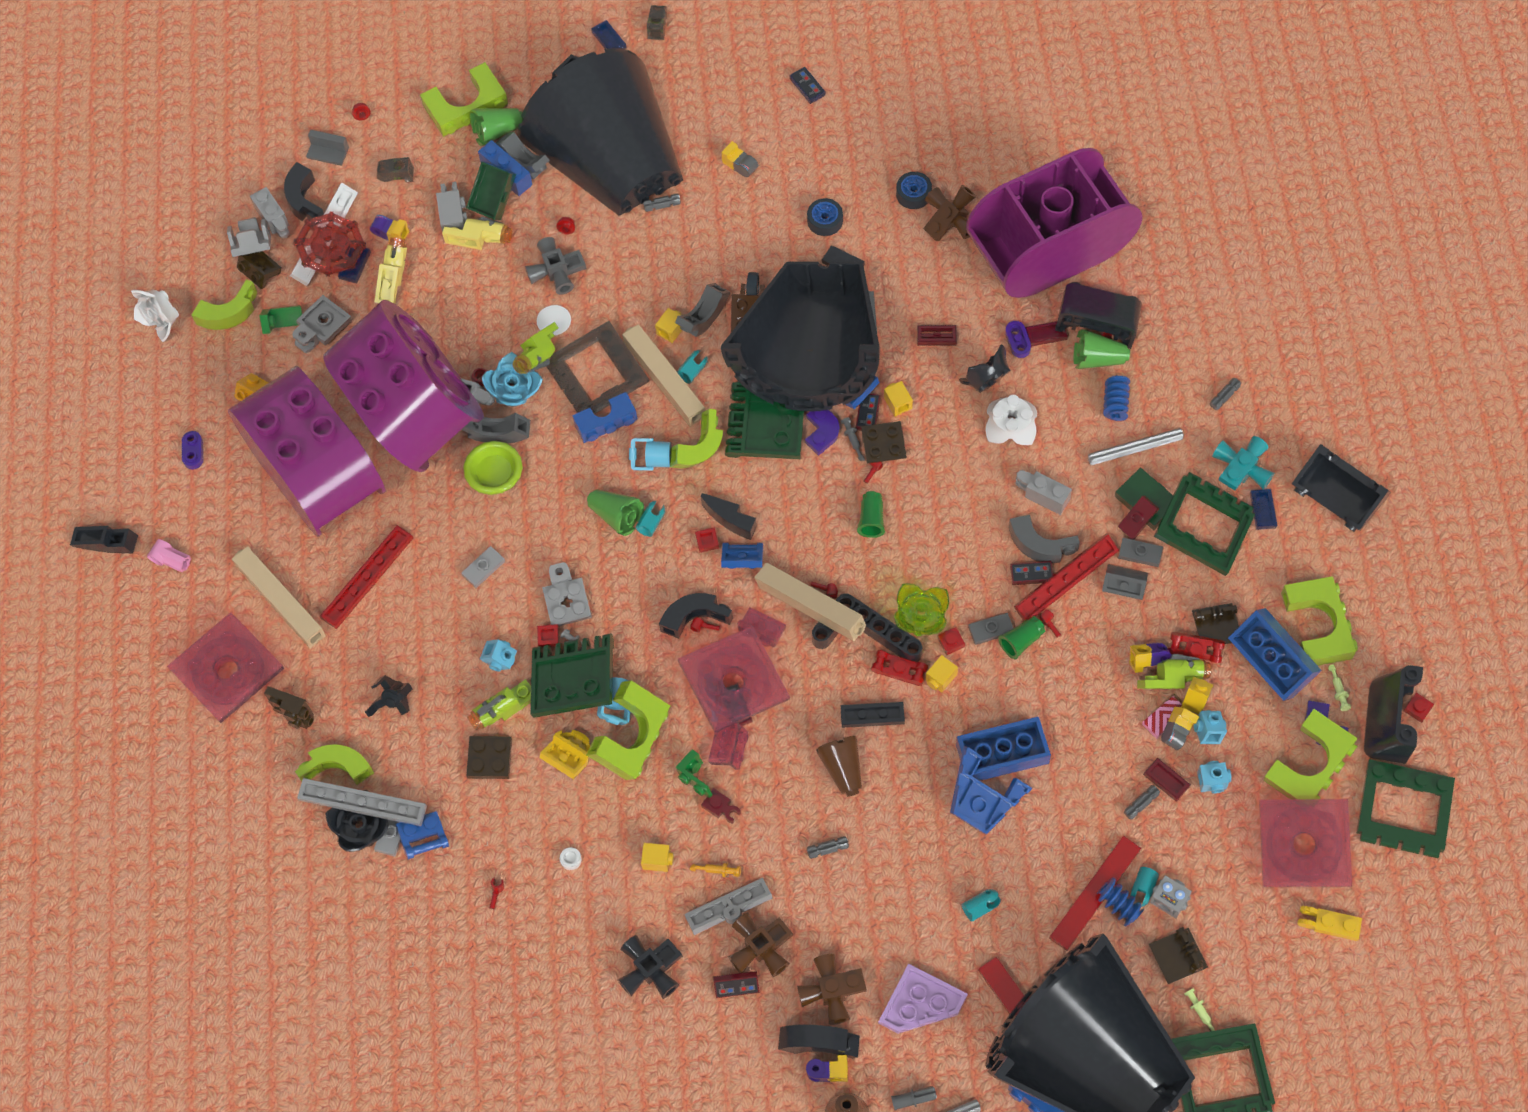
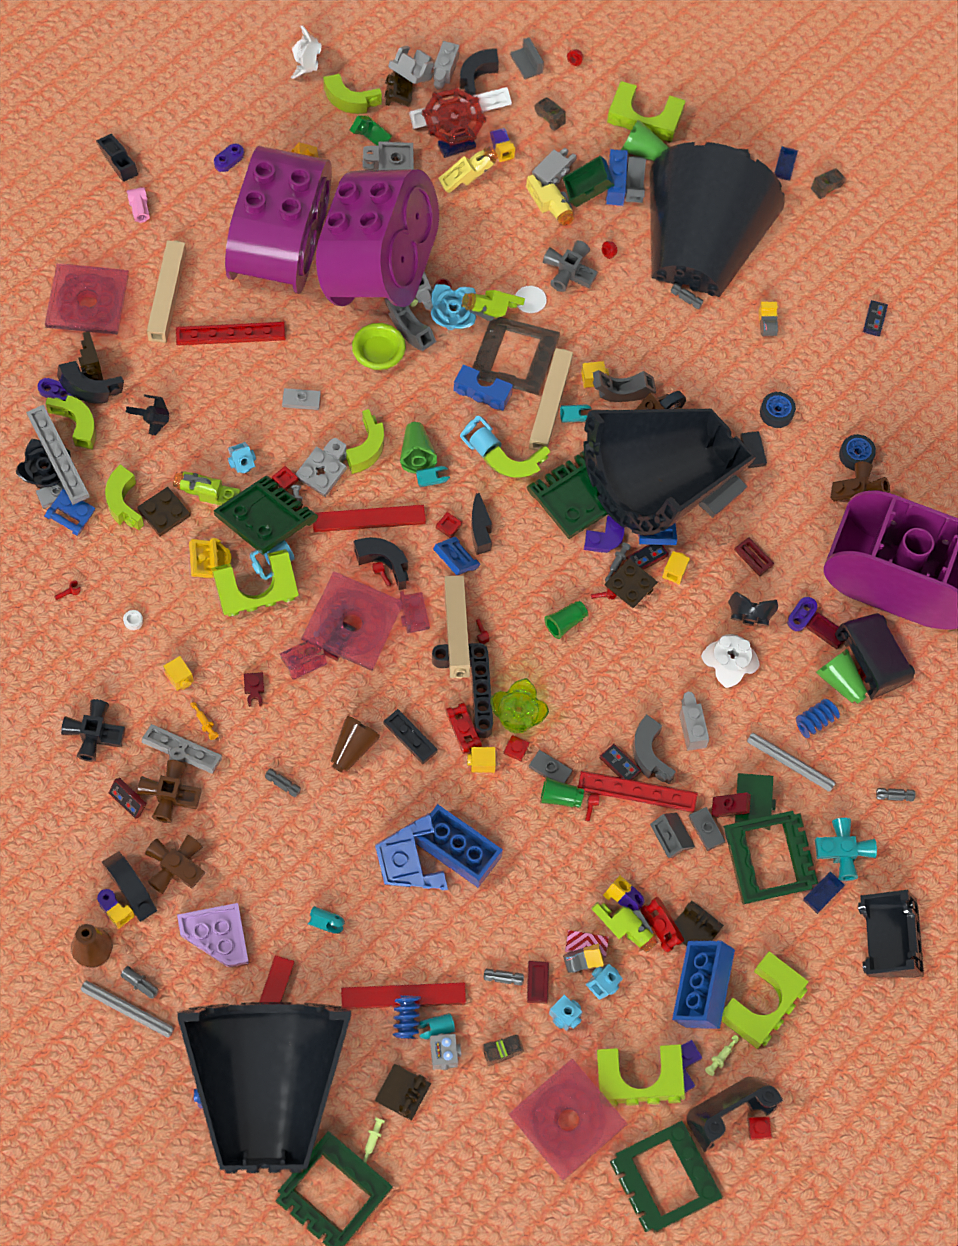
camera: 40 degrees right, 0 degrees up
(289, 759) = (56, 389): none -> dark purple plate
(311, 735) = (85, 388): none -> black arch
(445, 789) = (116, 489): none -> lime arch
(584, 559) = (368, 453): none -> lime arch
(645, 595) = (369, 518): none -> red tile
(687, 767) = (261, 643): green bracket -> none
(1197, 695) = (622, 953): yellow brick -> none
(1204, 850) = (502, 1049): none -> clear smoke leg
(1331, 923) = (523, 1188): yellow hinge -> none

